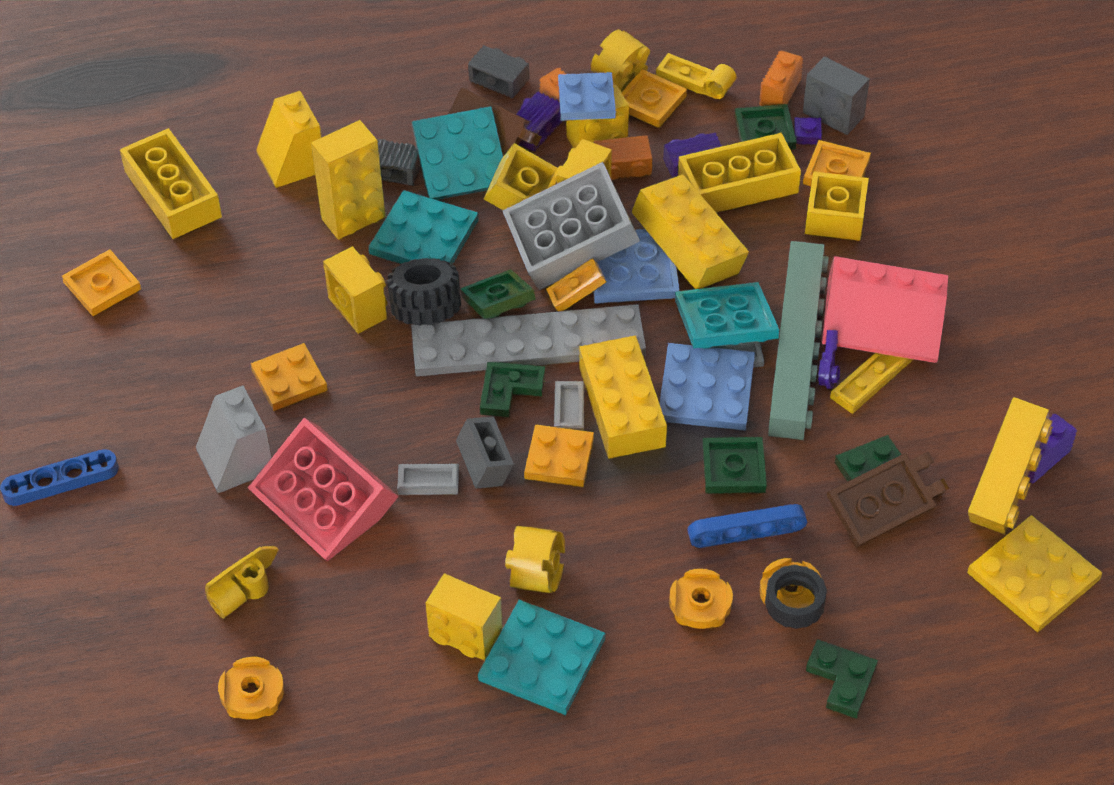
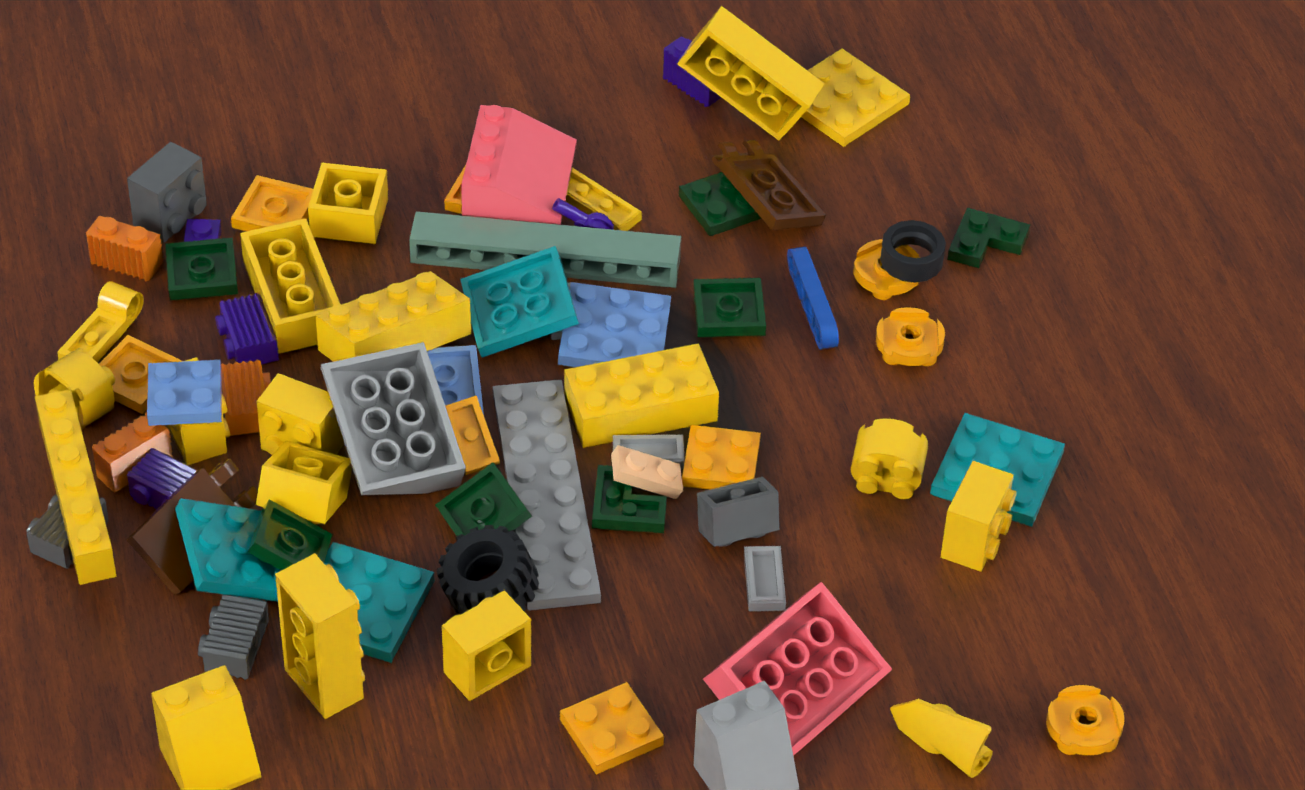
camera: 95 degrees left, 5 degrees down
(462, 178) = (286, 537): none -> dark green plate
(511, 55) = (75, 487): none -> yellow brick
(534, 396) = (646, 472): none -> light nougat plate

